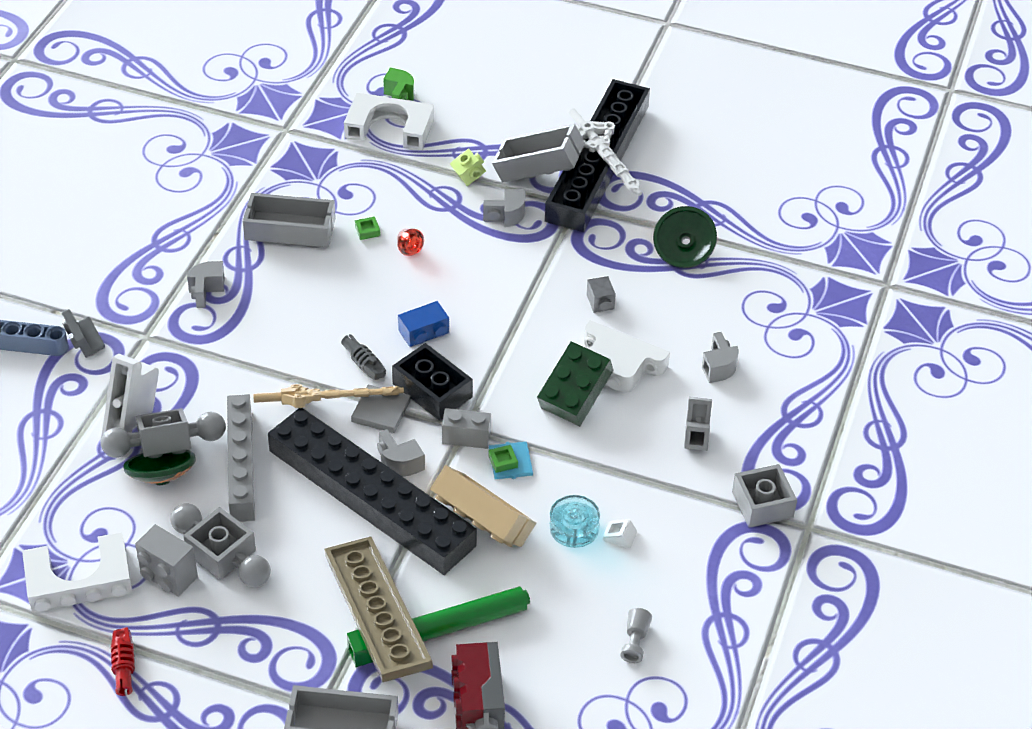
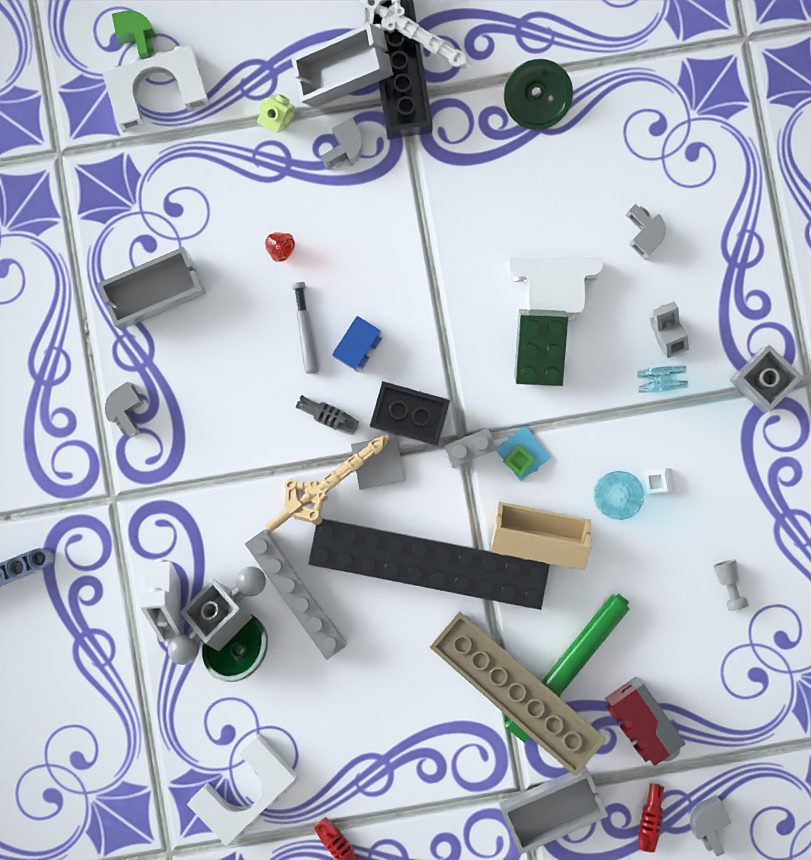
camera: 25 degrees left, 40 degrees up
(84, 334) = (59, 538): dark grey bracket -> none
(166, 560) = (312, 745): light grey brick -> none
(221, 543) = (342, 697): light grey brick -> none
(367, 228) = (225, 246): bright green tile -> none
(388, 301) = (306, 337): none -> light grey piece
(402, 458) = (434, 515): light grey brick -> none
(600, 294) = (496, 212): flat silver brick -> none
(668, 451) = (662, 379): none -> clear light blue wheel

